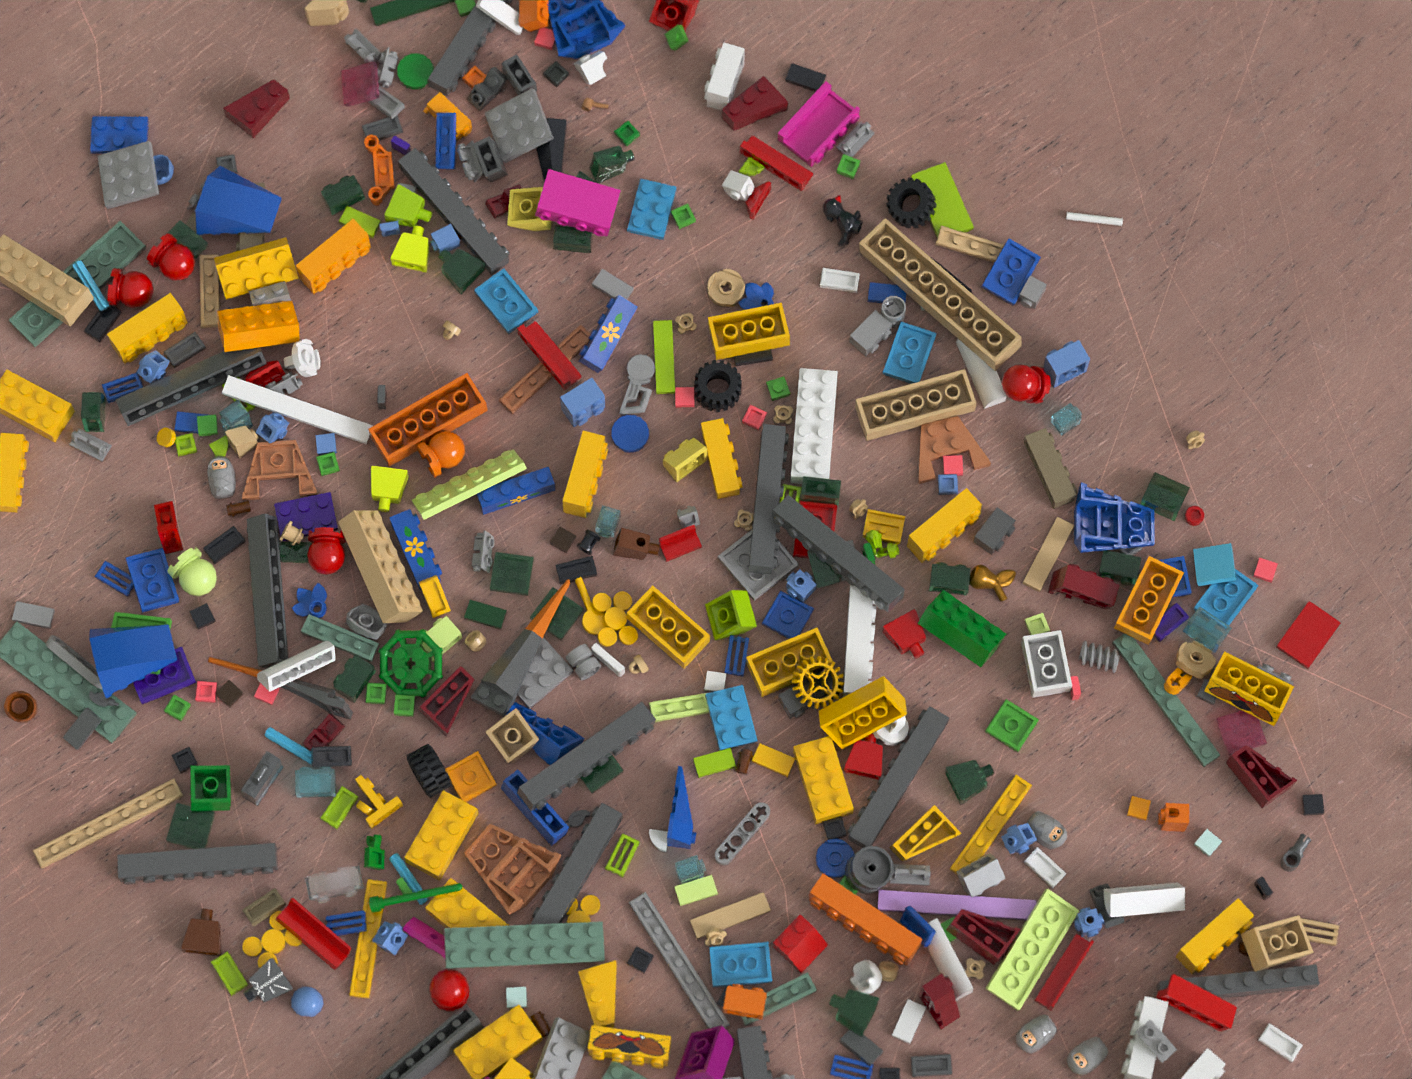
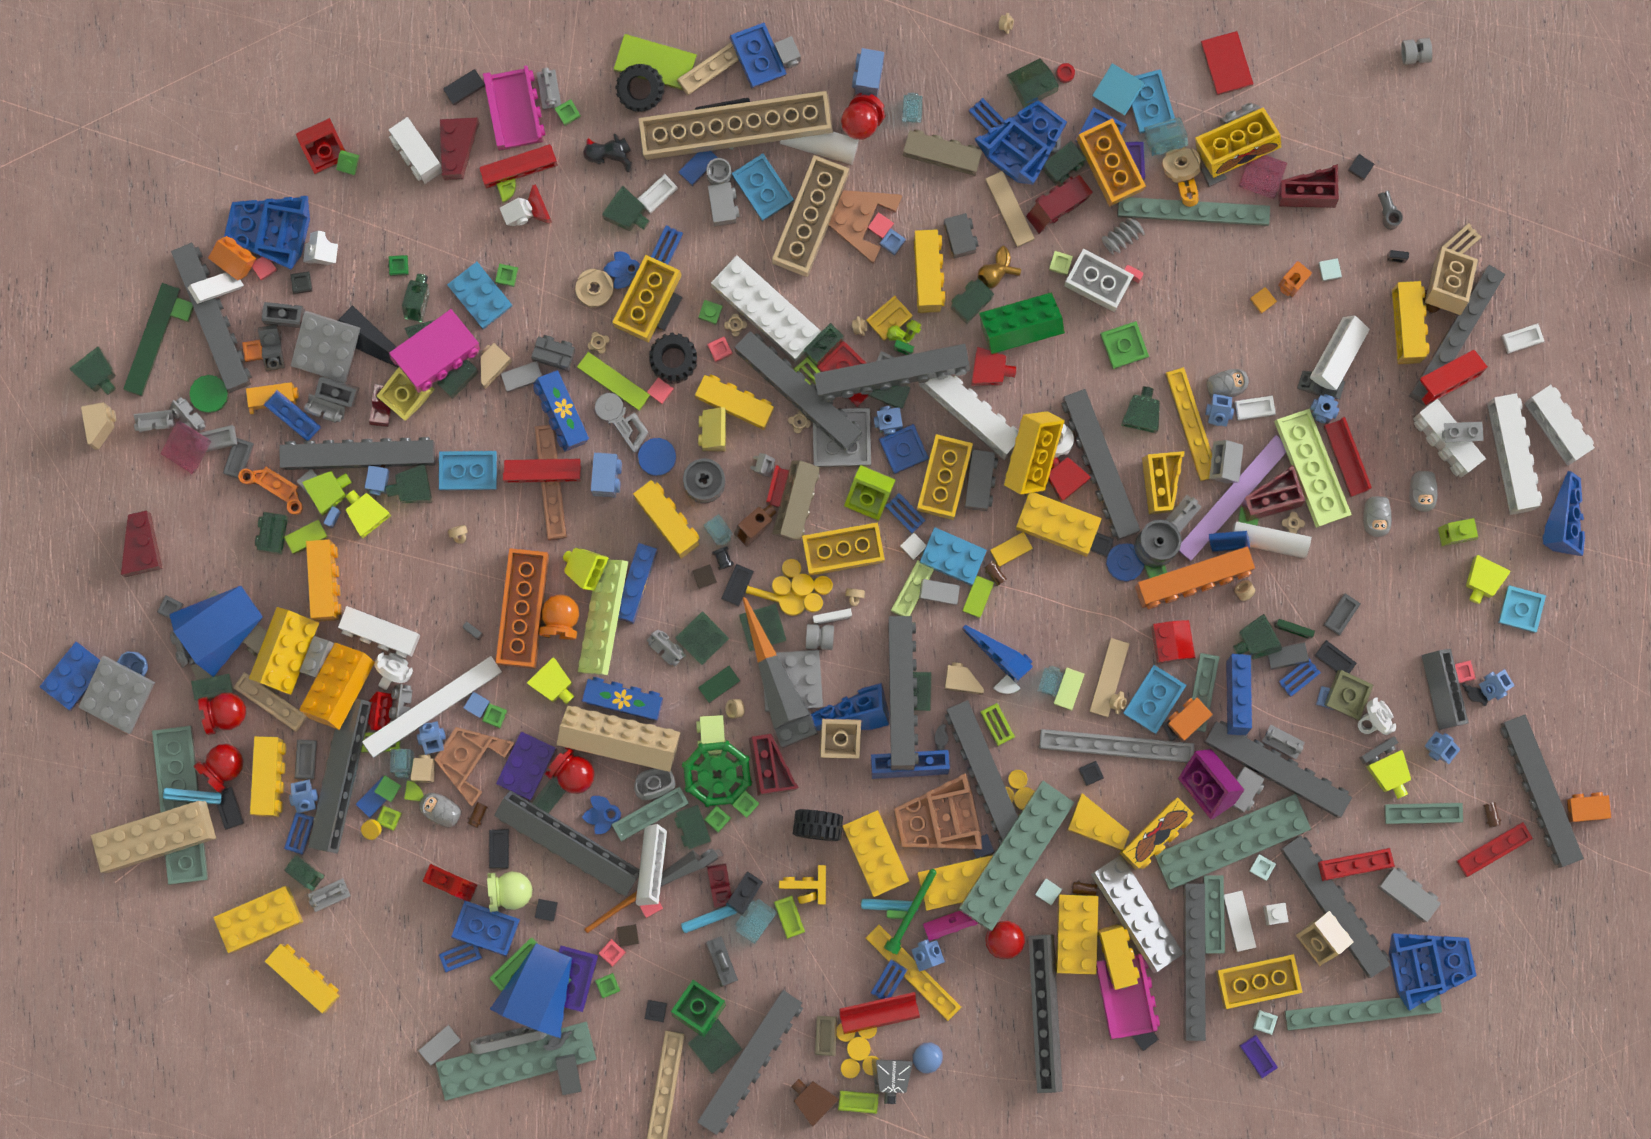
camera: 55 degrees left, 10 degrees up
(20, 706) = (512, 1111): dark orange hair -> none
(292, 534) = (535, 788): tan brick -> none
(325, 886) = (850, 966): clear brick -> none
(326, 327) = (378, 631): none -> white brick
(373, 855) = (850, 918): green plate -> none
(400, 145) = (266, 454): dark purple tile -> none
(434, 596) = (675, 713): yellow tile -> none
(470, 777) = (843, 795): light orange tile -> none
(497, 442) = (584, 567): none -> neon yellow torso
(514, 918) = (986, 847): none -> dark blue tile
(588, 103) = (348, 276): medium nougat hand -> none
(604, 256) = (493, 363): none -> tan slope
(635, 798) = (961, 679): none -> tan slope
(648, 480) = (700, 470): none -> dark grey wheel
(649, 295) = (553, 353): none -> dark grey brick
(679, 562) = (796, 500): none -> dark tan brick
(693, 728) = (939, 591): none -> light grey tile
(740, 832) = (1054, 618): light grey beam -> none
(796, 1026) = (1239, 694): none -> blue brick
(802, 317) = (672, 231): none -> blue tile
(805, 265) = (625, 211): none -> clear green torso
(812, 689) = (980, 460): yellow gear -> none
(866, 977) = (1239, 611): white hair -> none
(887, 1034) = (1294, 629): none -> dark green tile
(908, 1021) = (1295, 604): white tile -> none
(940, 1000) = (1300, 569): dark red wedge -> none
(1110, 468) = (972, 111): none -> blue tile
(1265, 570) = (1150, 54): coral tile -> none

